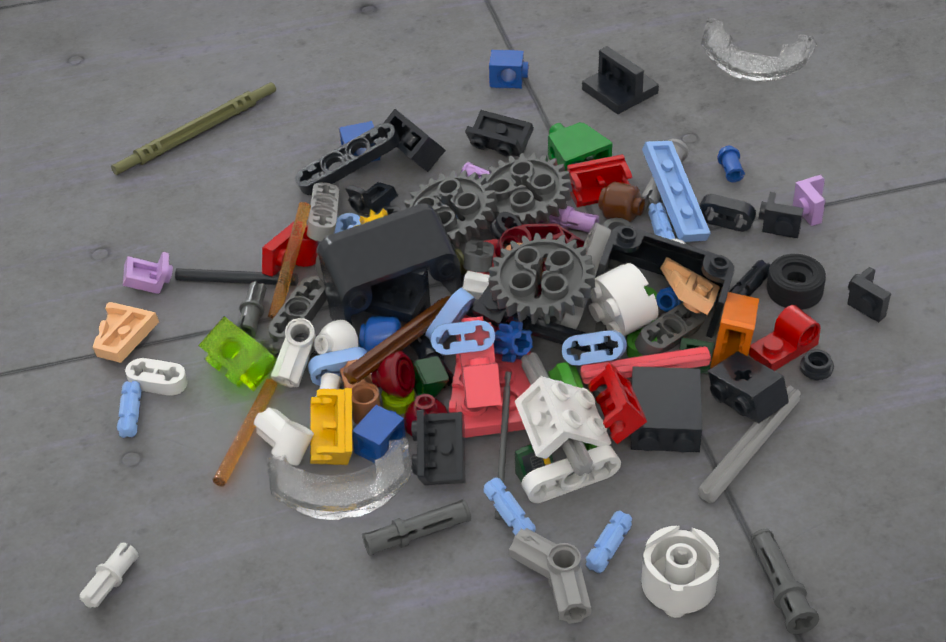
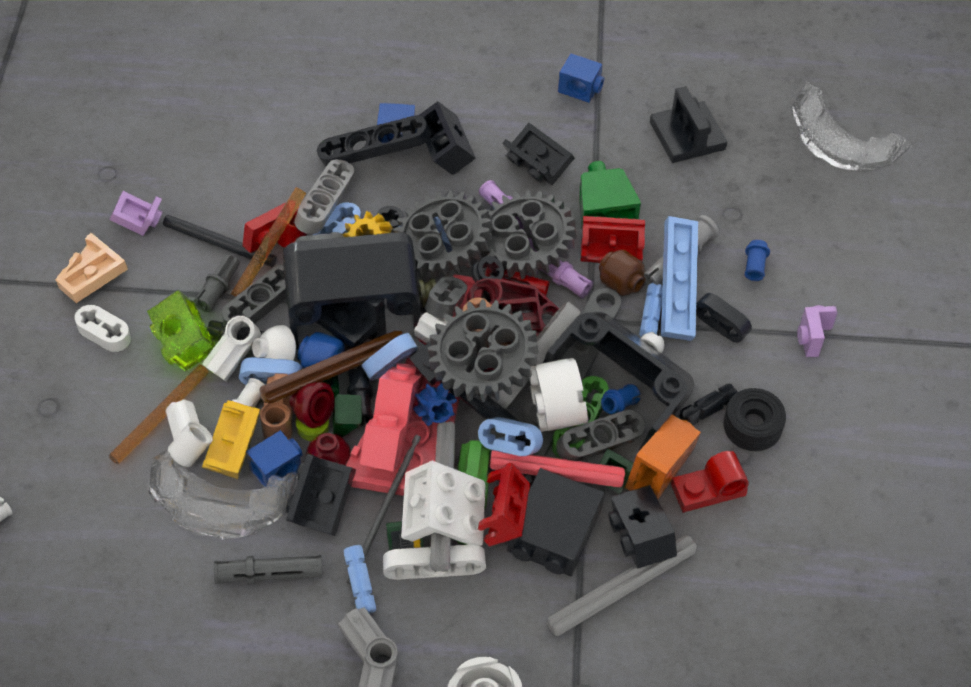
camera: 15 degrees right, 10 degrees up
(129, 409) = (64, 355): light blue axle -> none
(191, 129) = (250, 56): olive axle -> none
(373, 199) = (381, 194): black bracket -> none
(464, 345) = (379, 400): light blue beam -> none
(608, 542) = (438, 644): light blue axle -> none
(694, 290) = (636, 397): light nougat wing -> none
(780, 218) = (773, 342): black bracket -> none
(817, 365) = (730, 513): black plate -> none
(867, 296) = (815, 460): black bracket -> none

